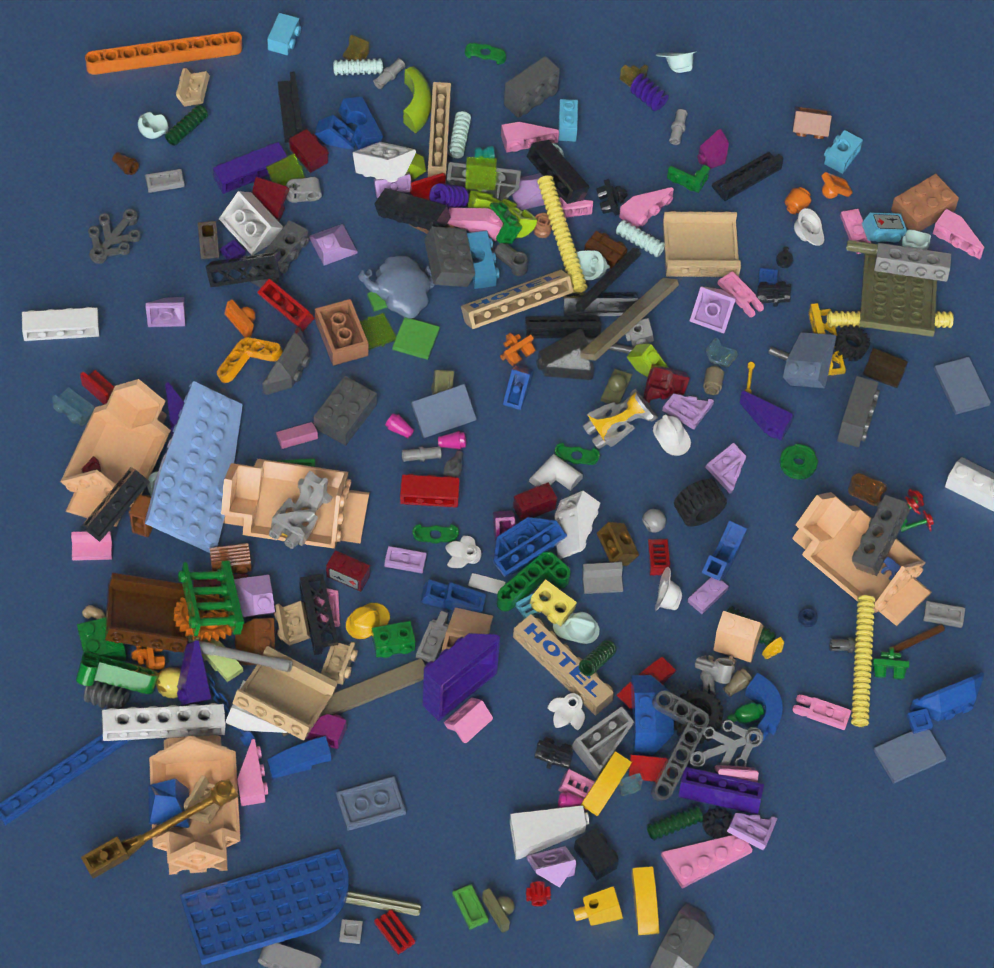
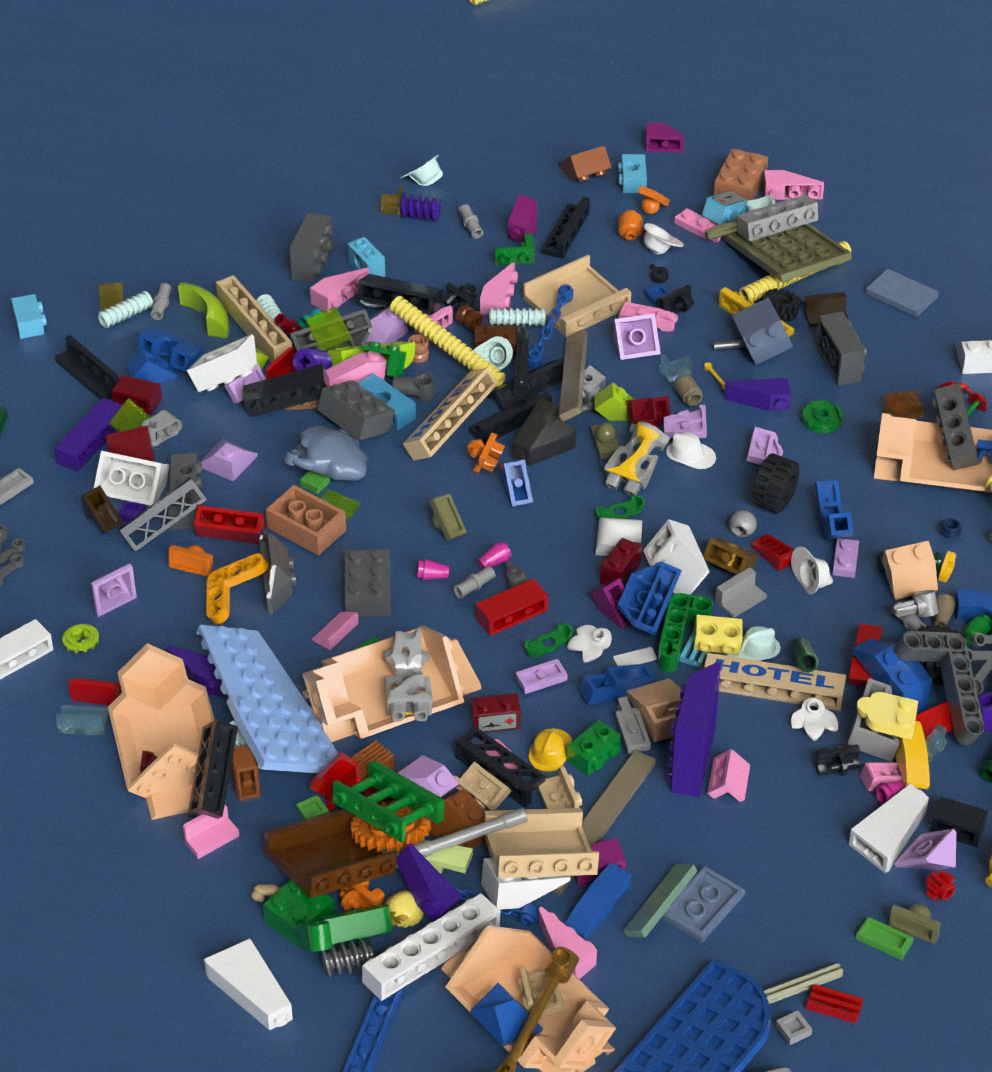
camera: 30 degrees left, 15 degrees down
(33, 672) = (250, 983): none -> white slope
(121, 332) = (75, 633): none -> lime gear
(170, 569) = (311, 808): none -> bright green tile
(198, 557) = (339, 768): none -> red panel
(342, 783) = (660, 900): none -> sand green tile
(416, 338) = (380, 494): bright green tile -> none
(443, 411) = (464, 535): sand blue tile -> none
(458, 153) = (288, 325): none -> dark red pin
(496, 54) = (228, 248): green piece -> none
(603, 218) = (469, 317): none -> reddish brown wheel
(609, 744) = (889, 714): none -> light yellow plate
(690, 241) = (564, 295): none -> blue piece
(895, 129) = (663, 138): none -> magenta slope

